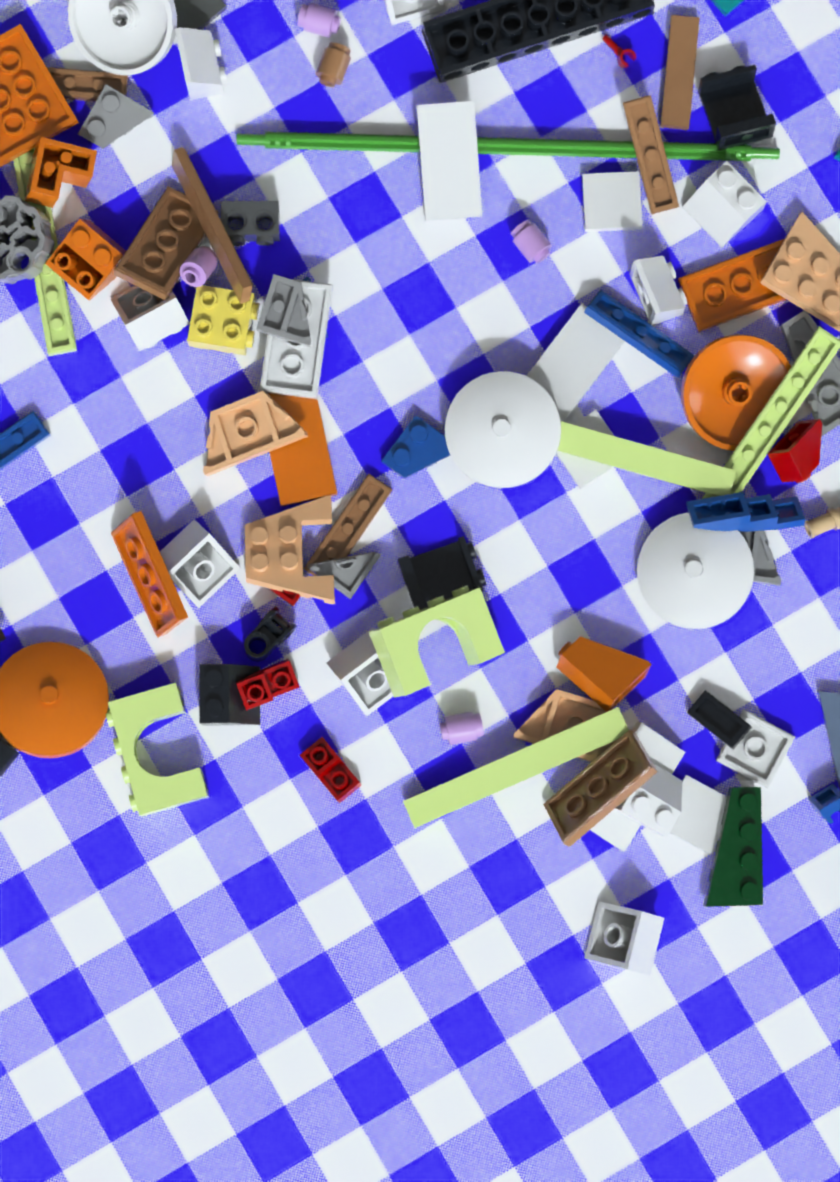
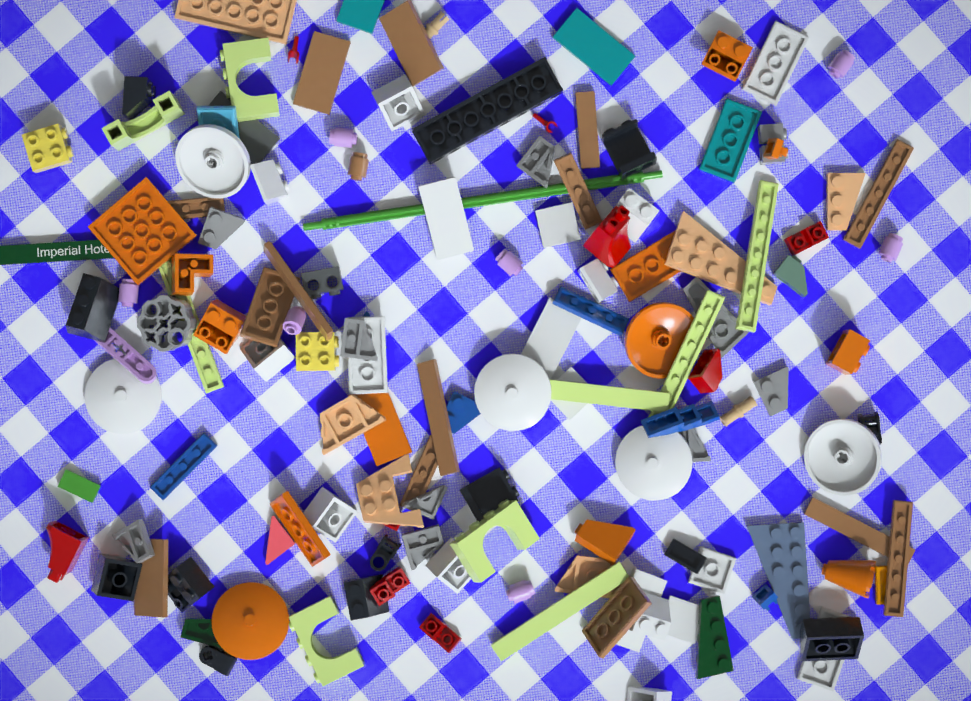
camera: 15 degrees left, 5 degrees up
(113, 591) = (278, 541): none -> coral tile
(327, 632) = (421, 544): none -> light grey wing
(385, 448) = (438, 417): none -> medium nougat tile
(599, 103) = (538, 161): none -> light grey wing
(687, 227) = (611, 238): none -> red hips

